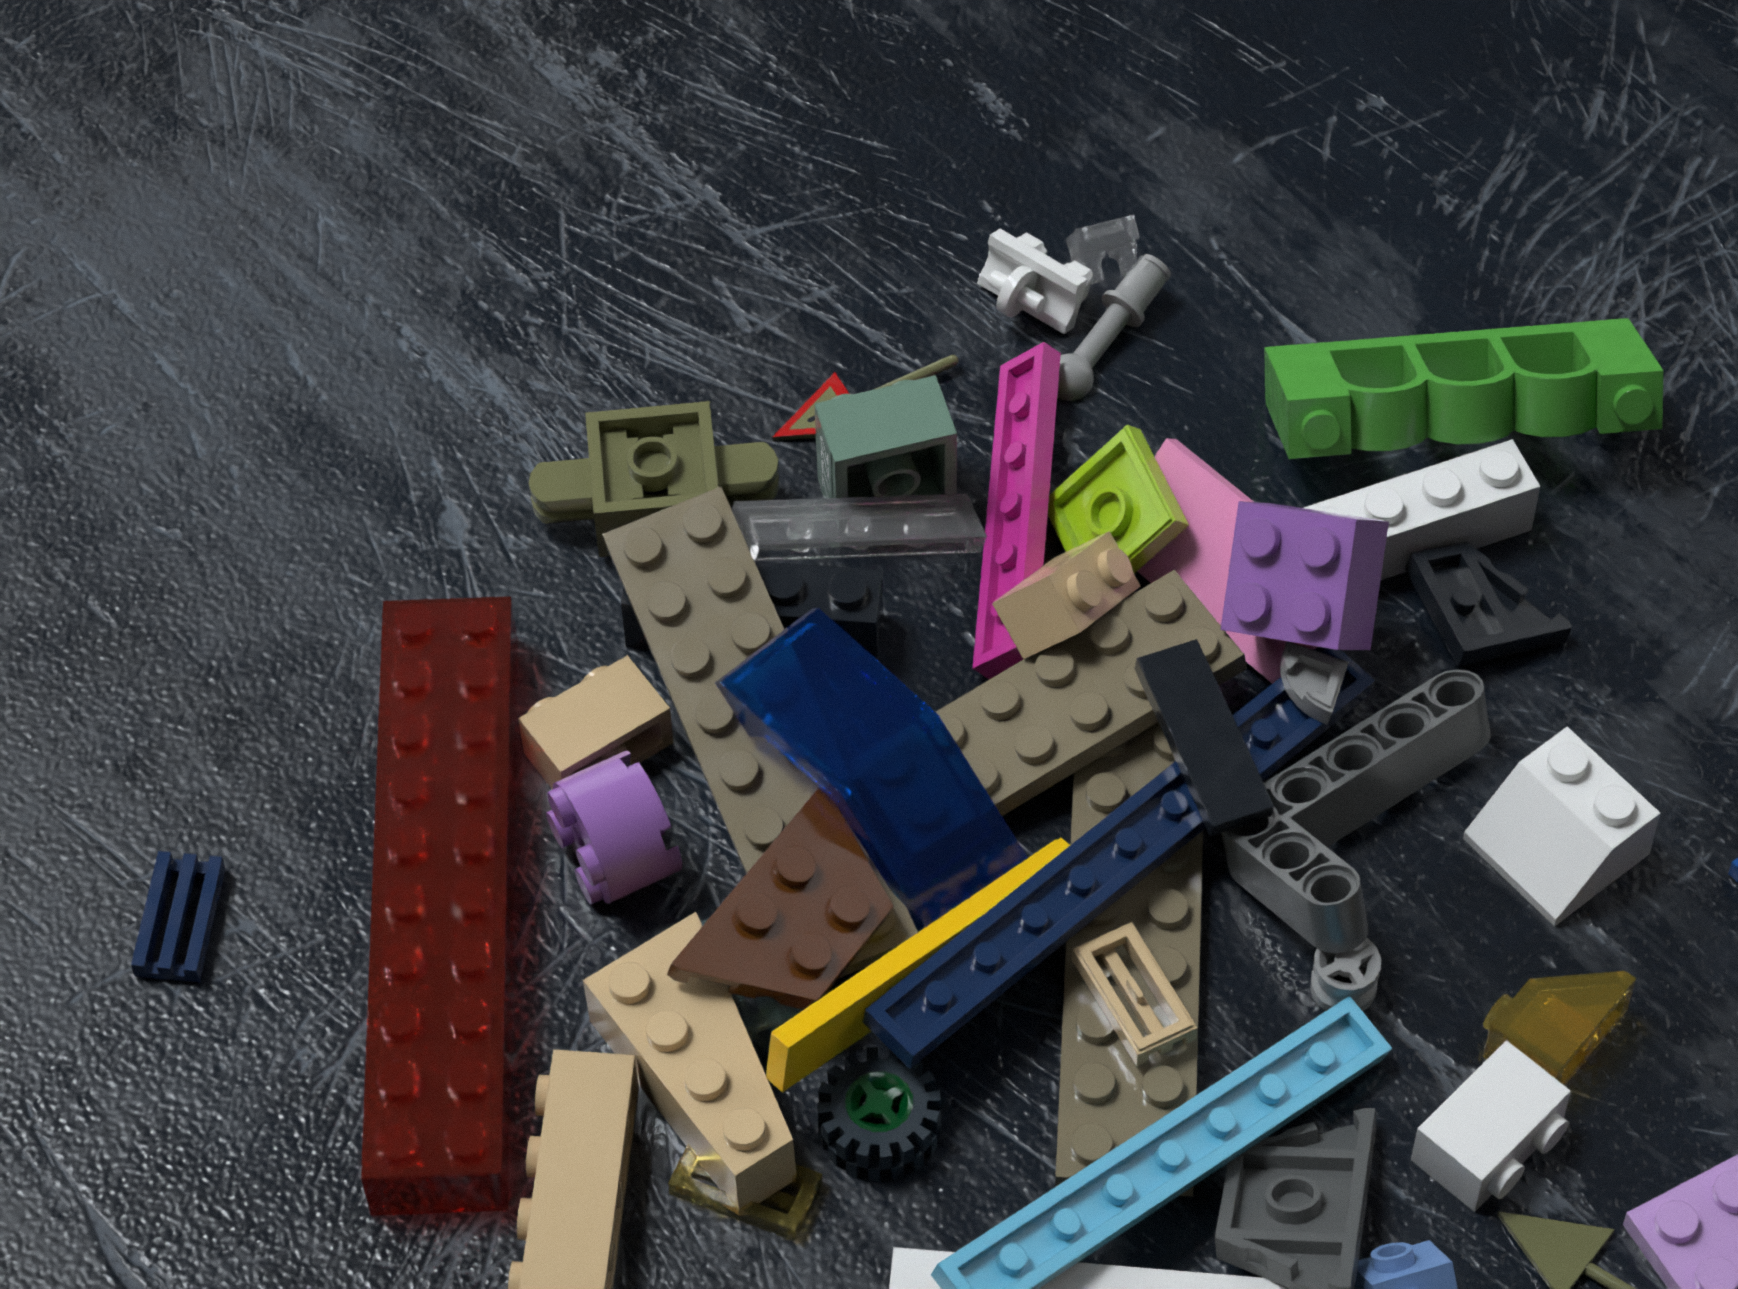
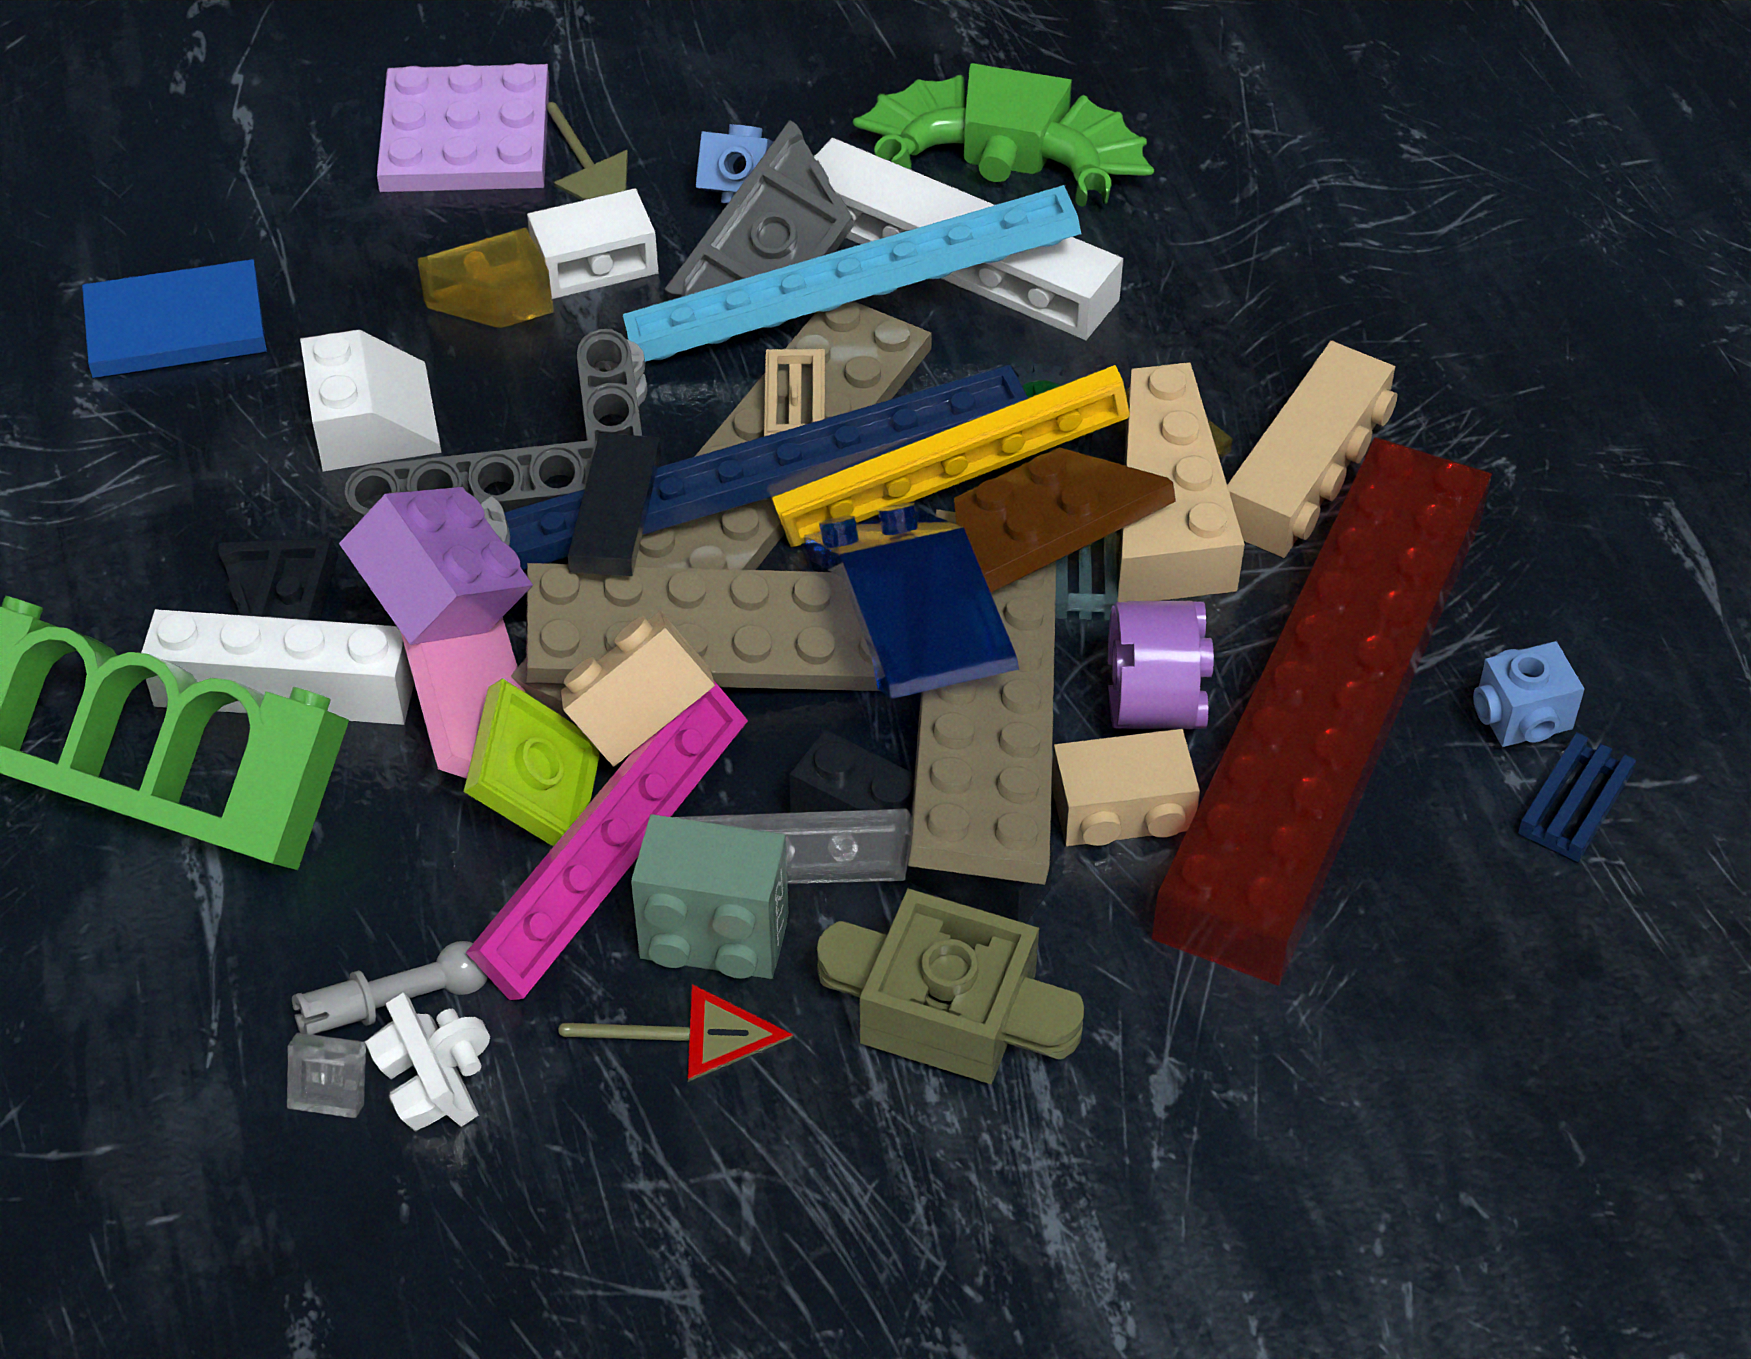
camera: 155 degrees left, 5 degrees down
(252, 968) = (1528, 694): none -> medium blue brick

